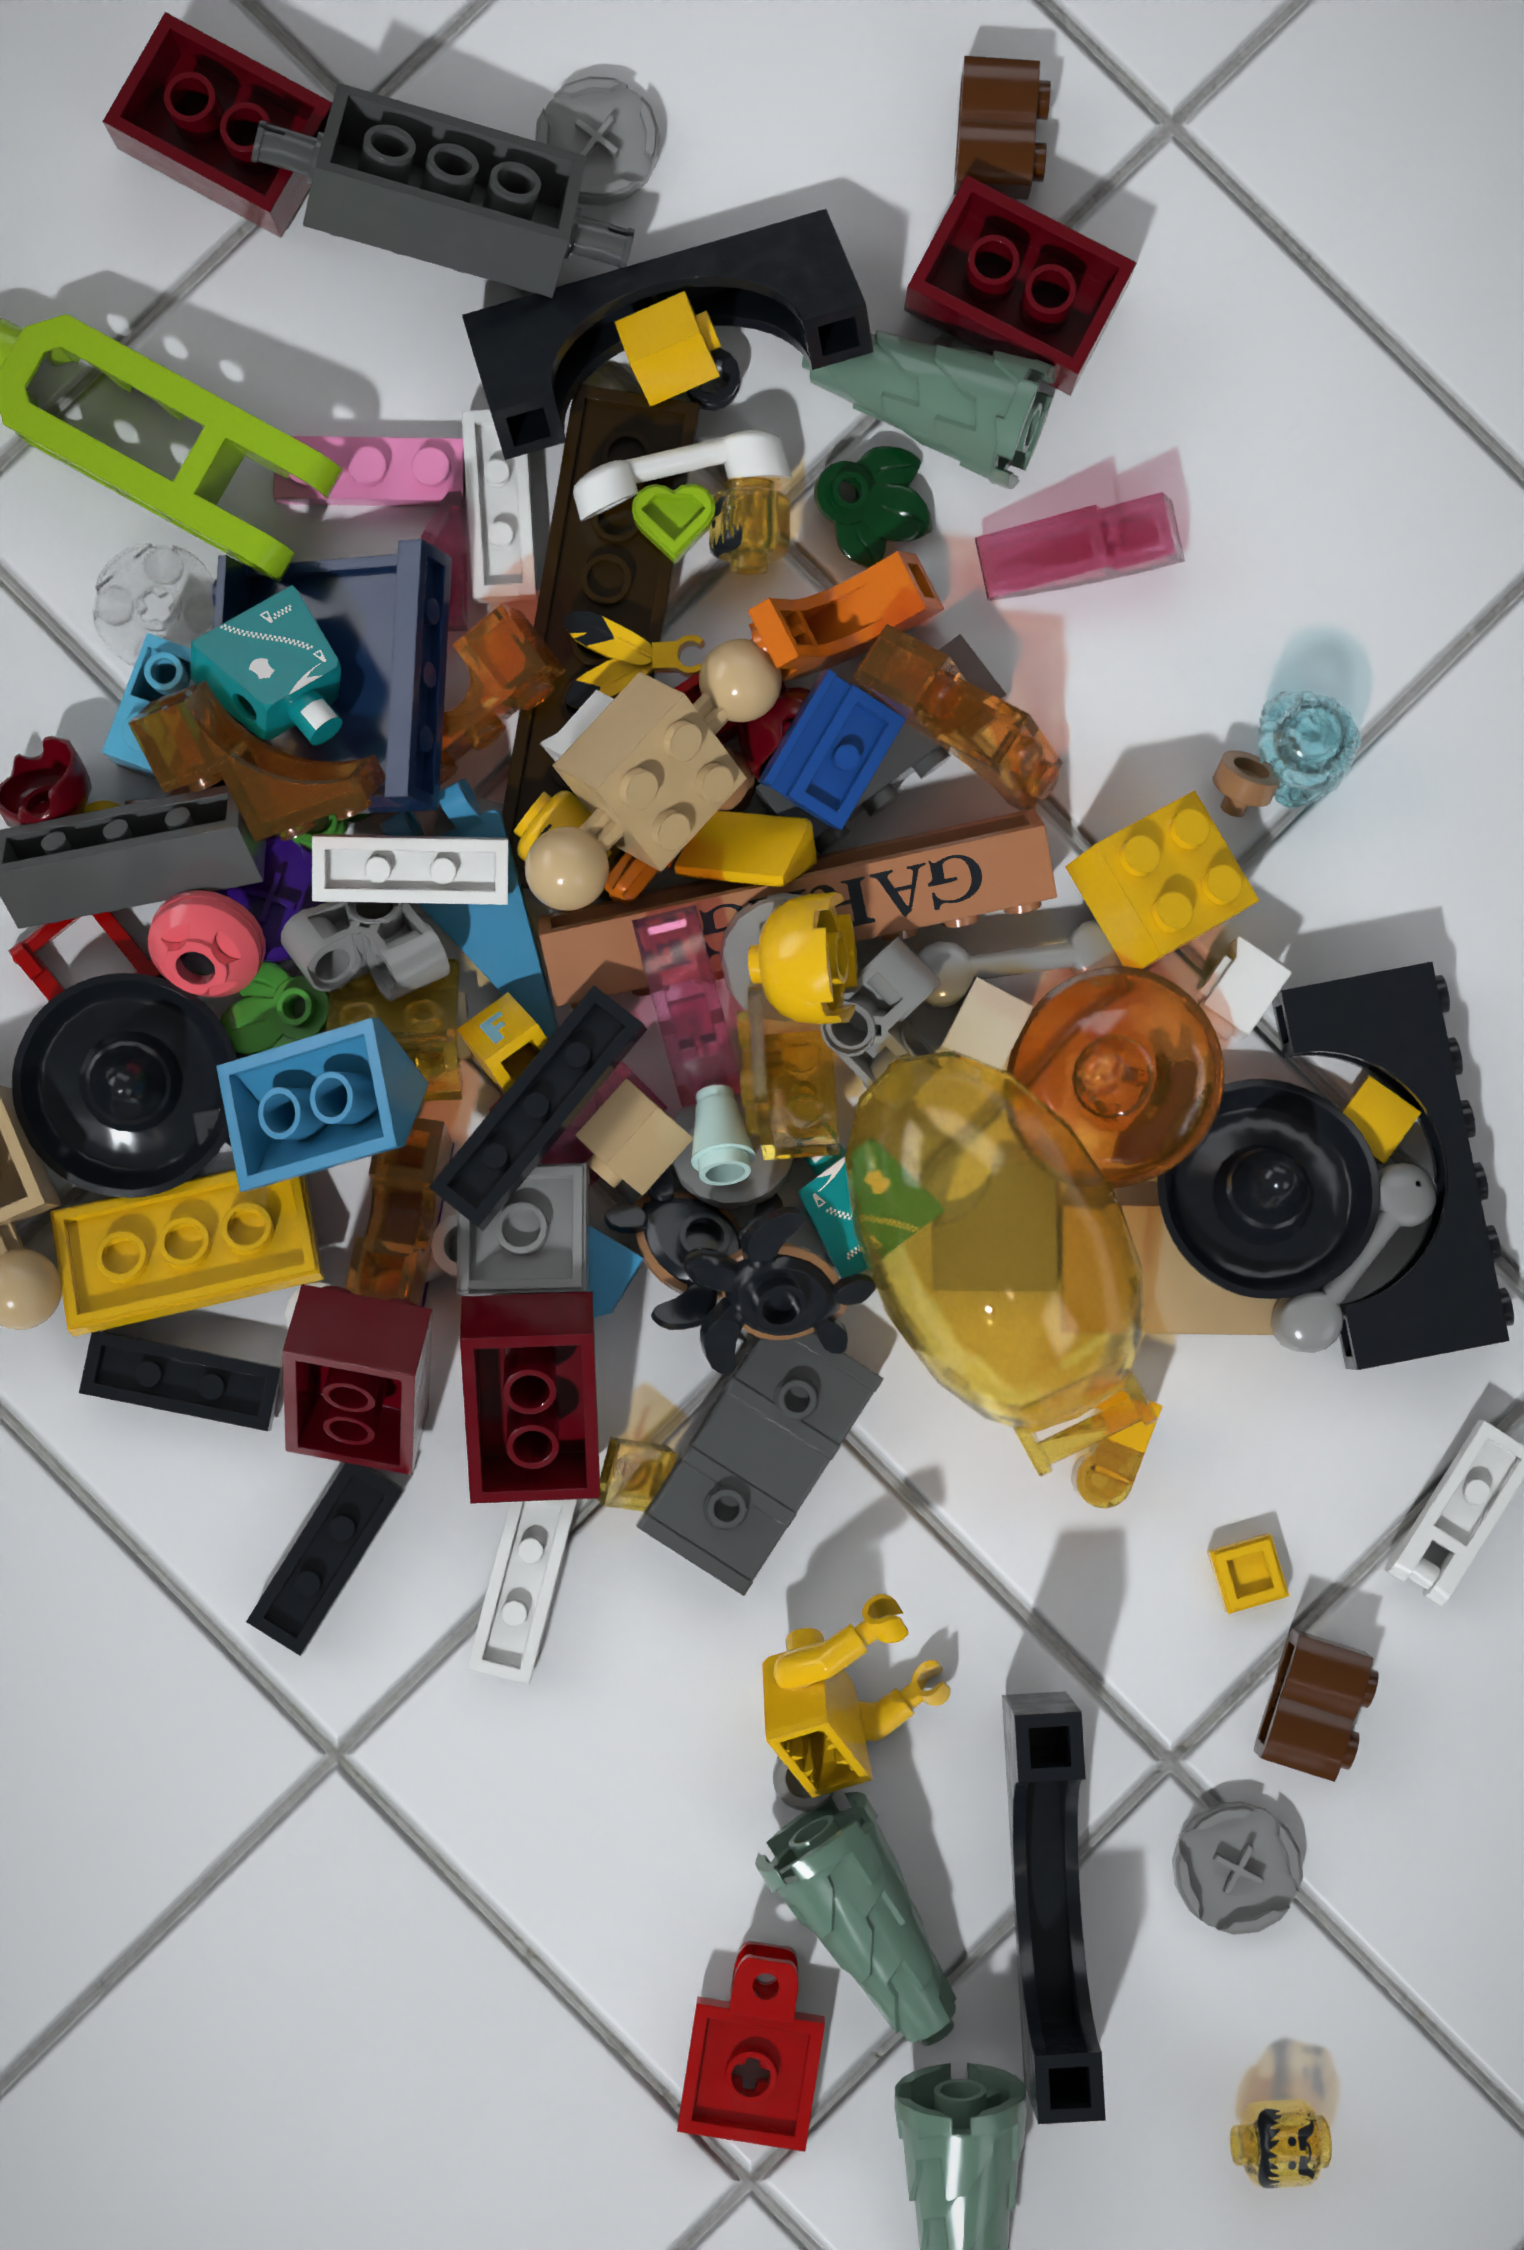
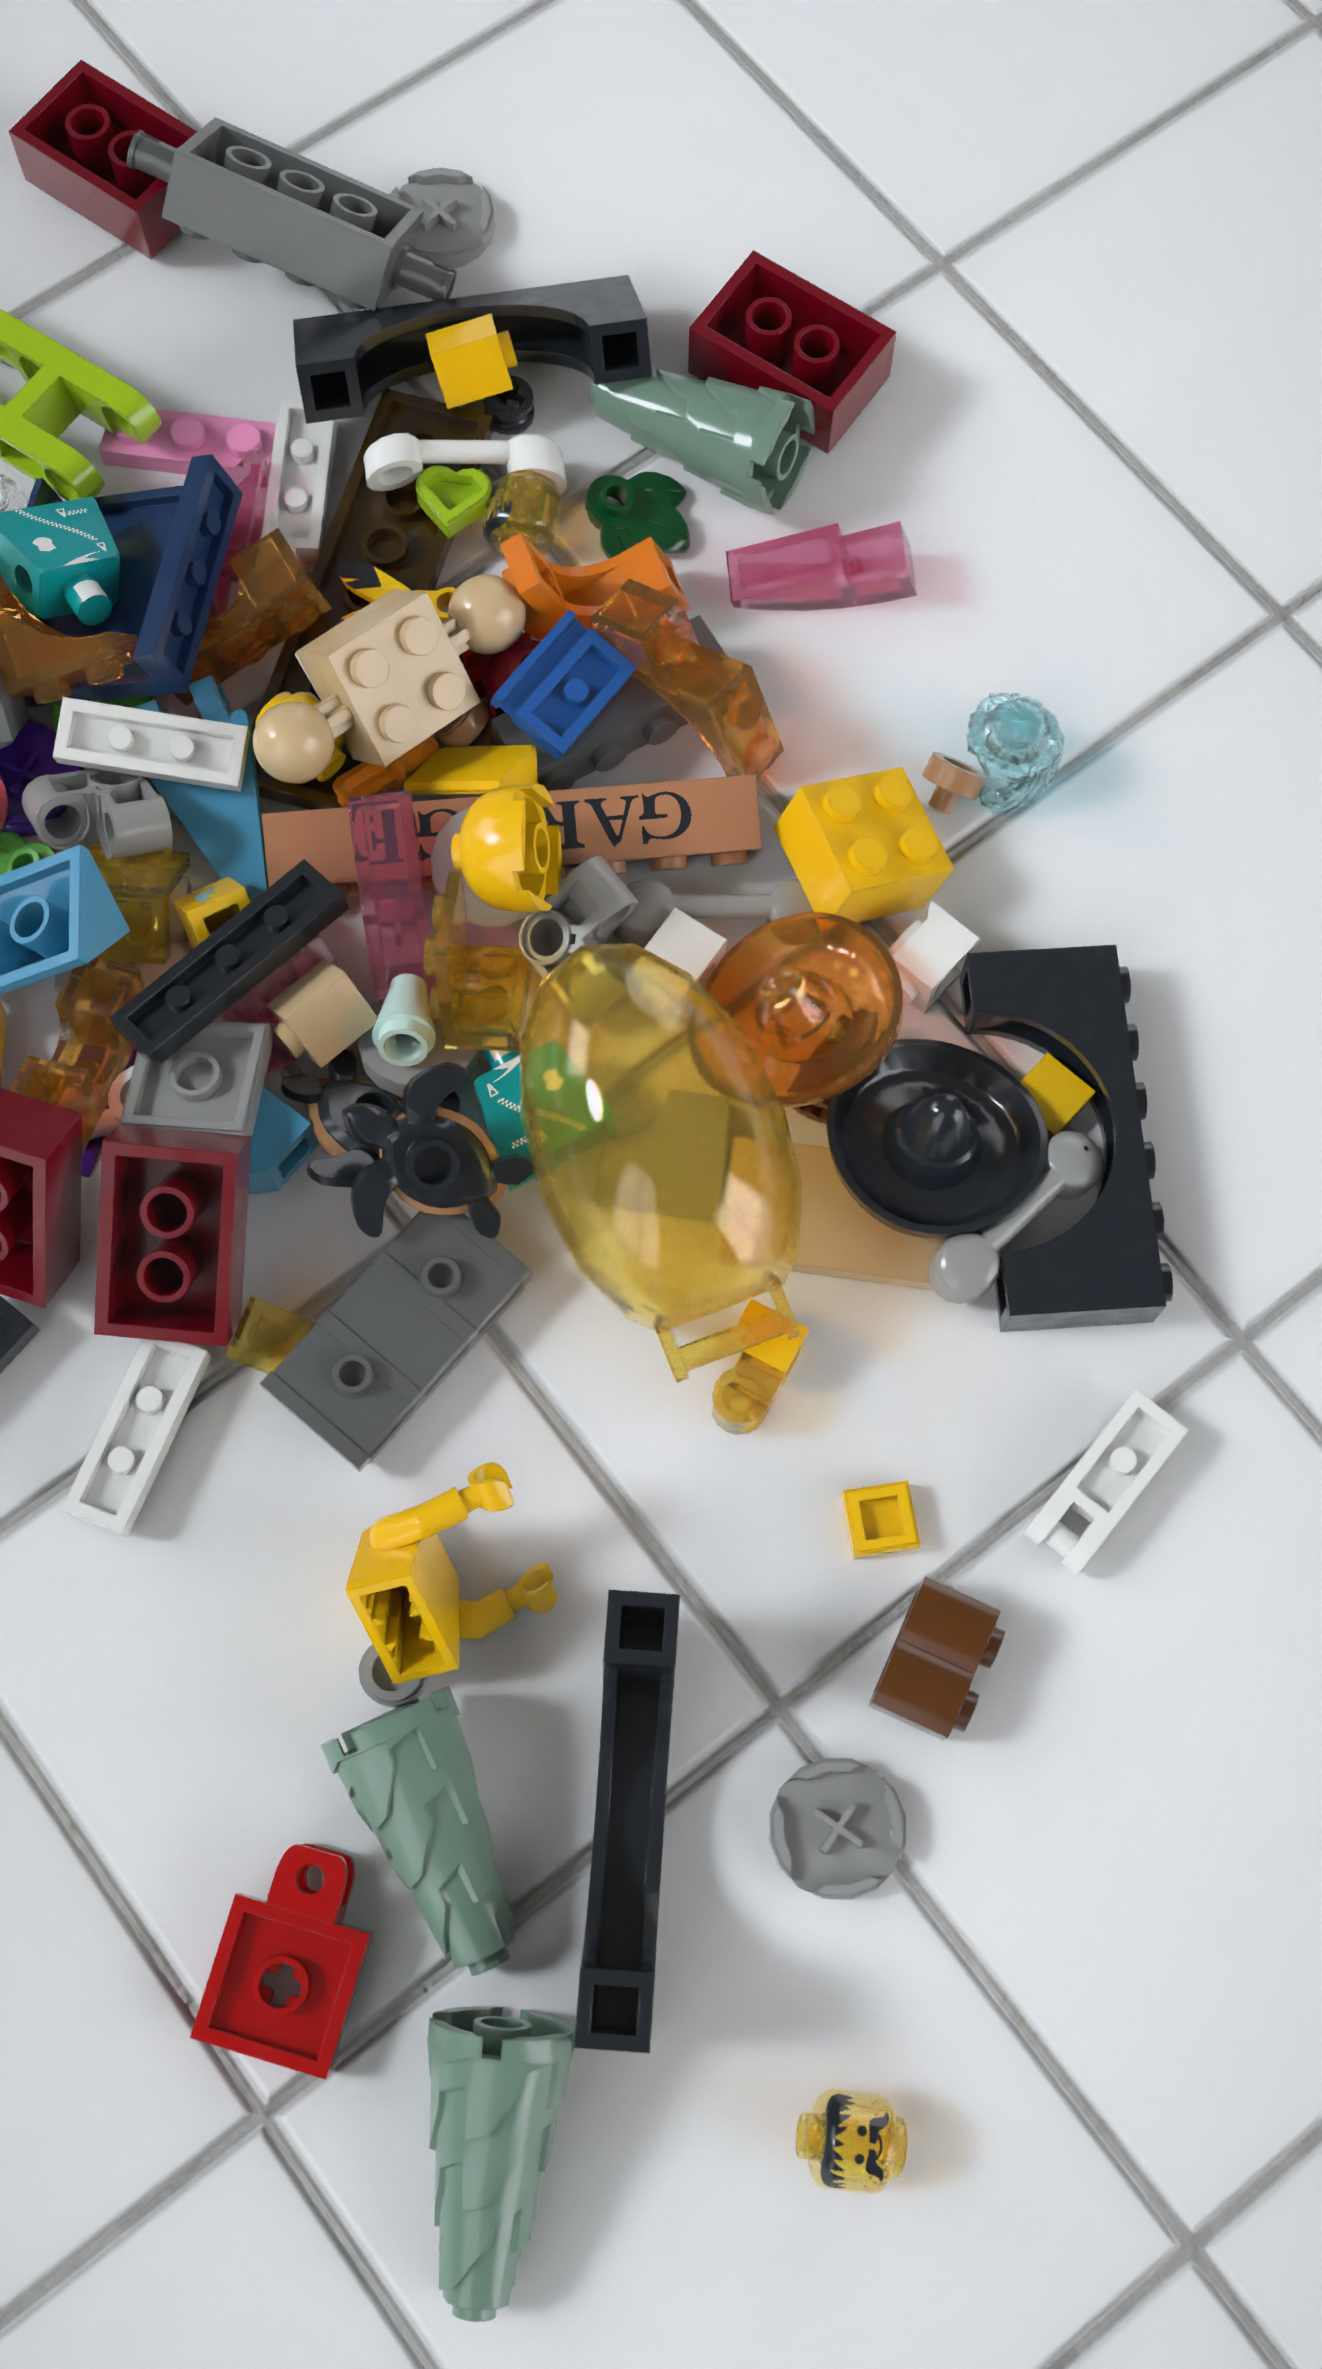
camera: 10 degrees right, 15 degrees down
(999, 124) = (793, 224): reddish brown brick -> none

